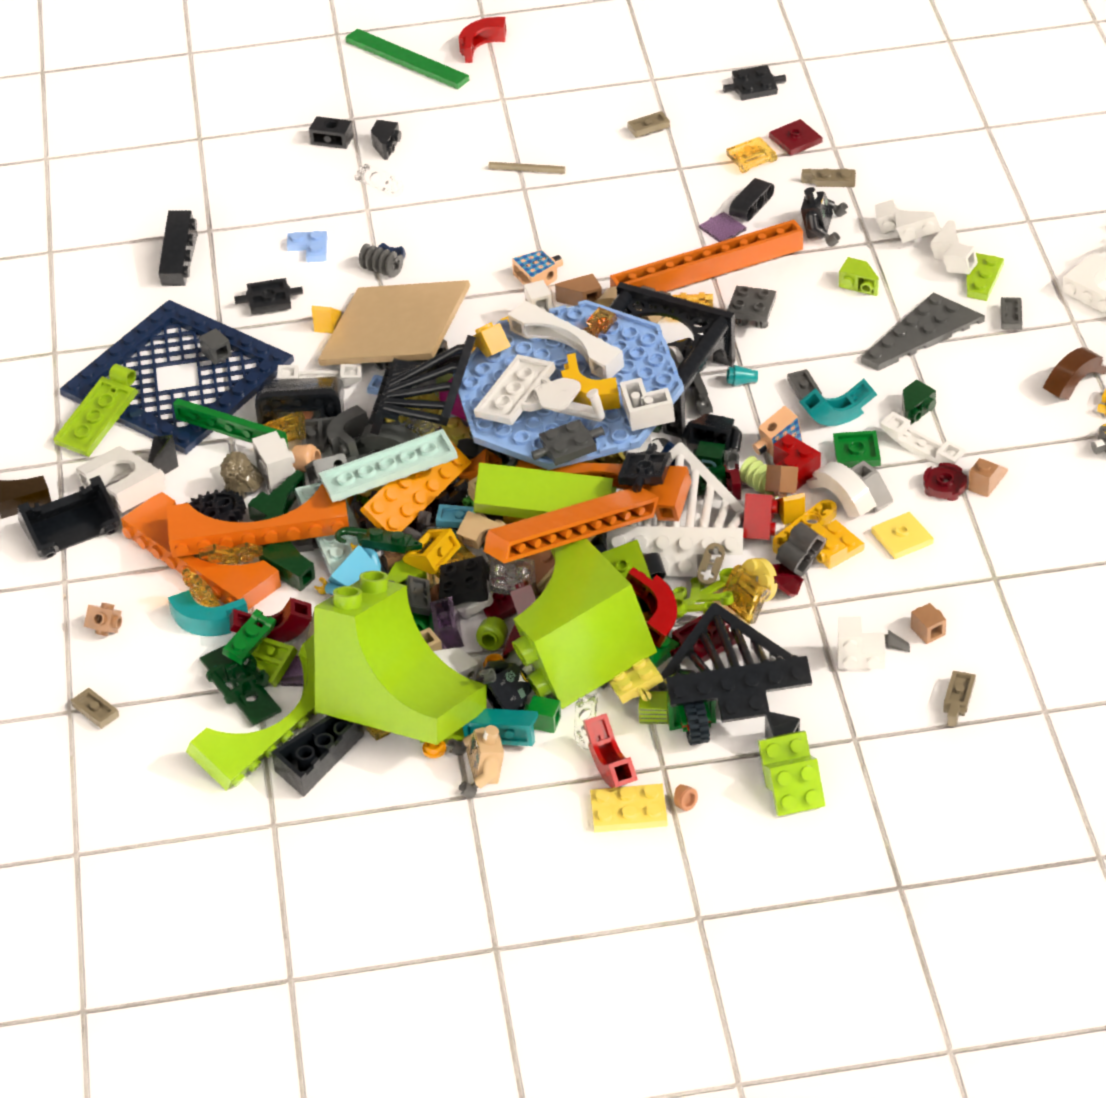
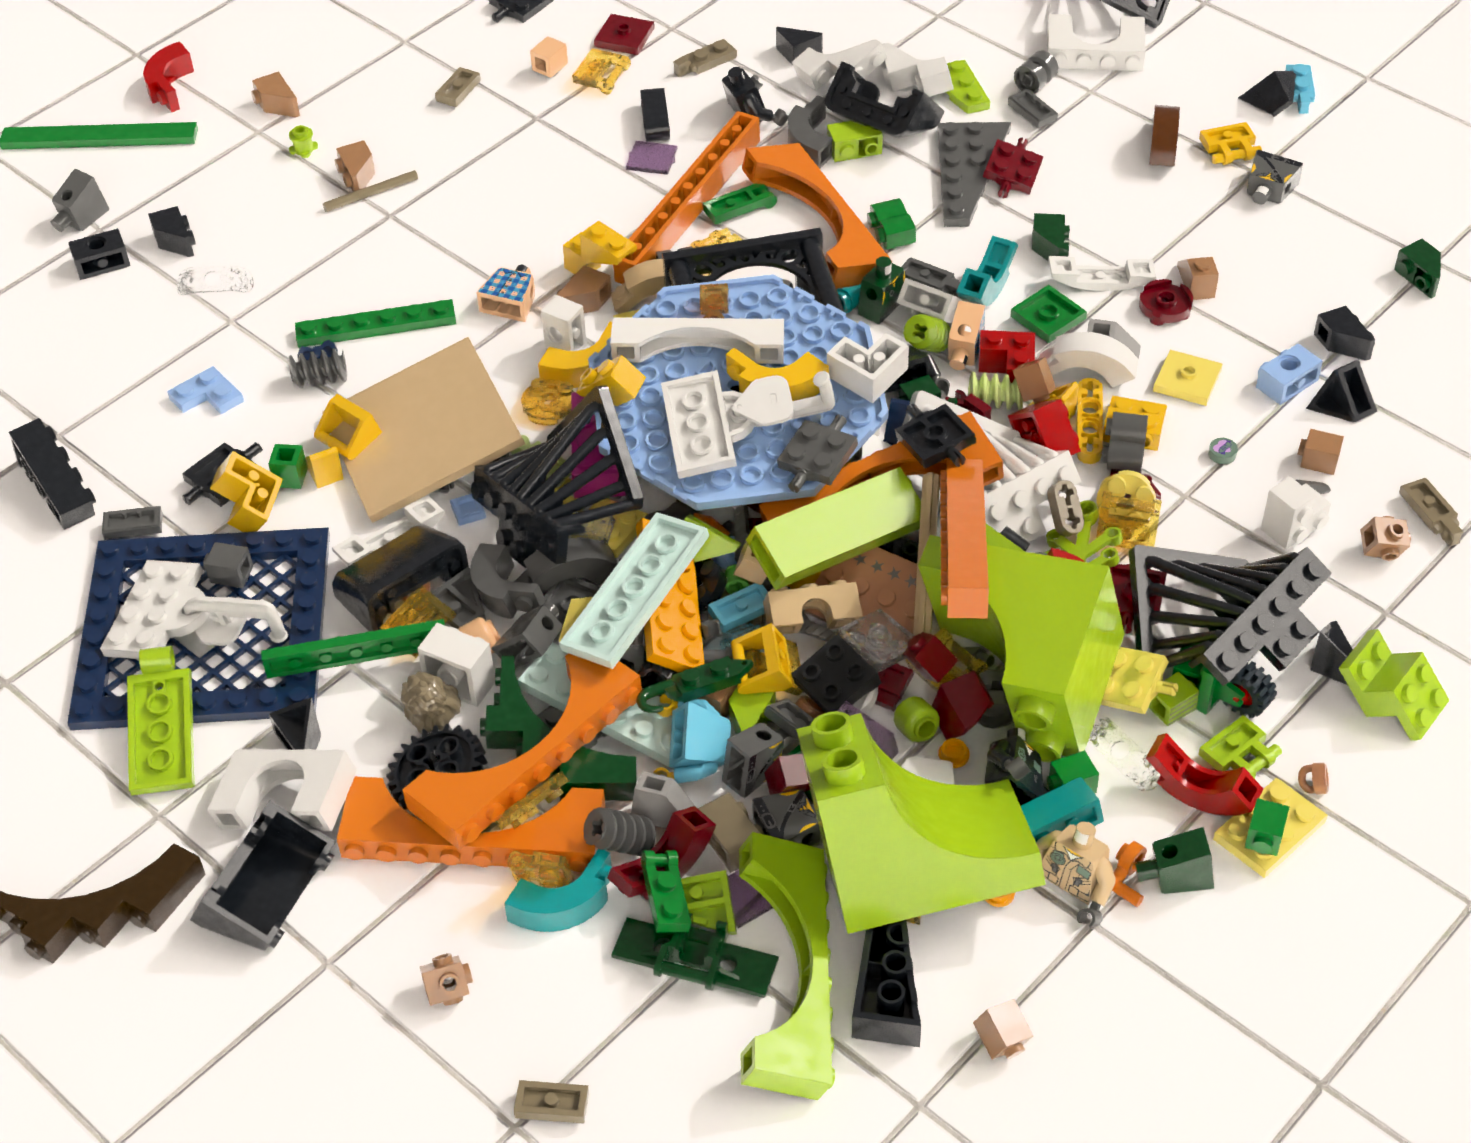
camera: 40 degrees left, 5 degrees up
(166, 354) = (170, 606): none -> white plate
(196, 298) = (132, 522): none -> dark grey plate
(261, 594) = (619, 831): none -> dark grey piece
(268, 310) = (251, 490): none -> yellow brick
(300, 307) = (289, 464): none -> green brick
(301, 587) = (658, 798): none -> light grey slope
(347, 95) = (78, 202): none -> dark grey torso
(348, 811) = (1003, 1030): none -> brick
(360, 308) = (340, 410): none -> yellow tile
(444, 251) = (375, 323): none -> green plate
(469, 461) = (716, 544): none -> lime slope
(517, 116) = (302, 141): none -> lime brick
(523, 774) = (1126, 857): none -> orange plate
(531, 78) = (275, 95): none -> medium nougat slope
(531, 146) = (355, 164): none -> medium nougat slope
(545, 790) = (1179, 863): none -> dark green torso
(605, 264) = (596, 247): none -> yellow arch
(611, 799) = (1267, 827): none -> green brick
(659, 752) = (1234, 743): none -> lime plate
(724, 129) = (549, 56): none -> light nougat brick
(728, 280) = (739, 203): none -> green plate
(748, 416) = (927, 333): none -> lime piece
(752, 305) = (790, 214): dark grey plate -> none
(760, 379) = (880, 290): none -> dark green torso
(771, 350) = (795, 173): none -> orange arch
(781, 394) = (927, 300): none -> white brick
(821, 342) = (891, 223): none -> green brick
(836, 251) = (801, 130): none -> dark grey arch
(868, 590) = (1223, 450): none -> sand green tile
(890, 258) = (858, 101): none -> black windscreen
(899, 692) = (1385, 537): none -> medium nougat brick
(903, 195) = (793, 42): none -> black slope
(948, 345) = (1013, 167): none -> dark red plate
(968, 566) = (1289, 373): none -> light blue brick
(988, 597) = (1345, 394): none -> black slope
(1038, 561) = (1344, 334): none -> black slope
(1039, 289) = (1036, 71): none -> dark grey wheel

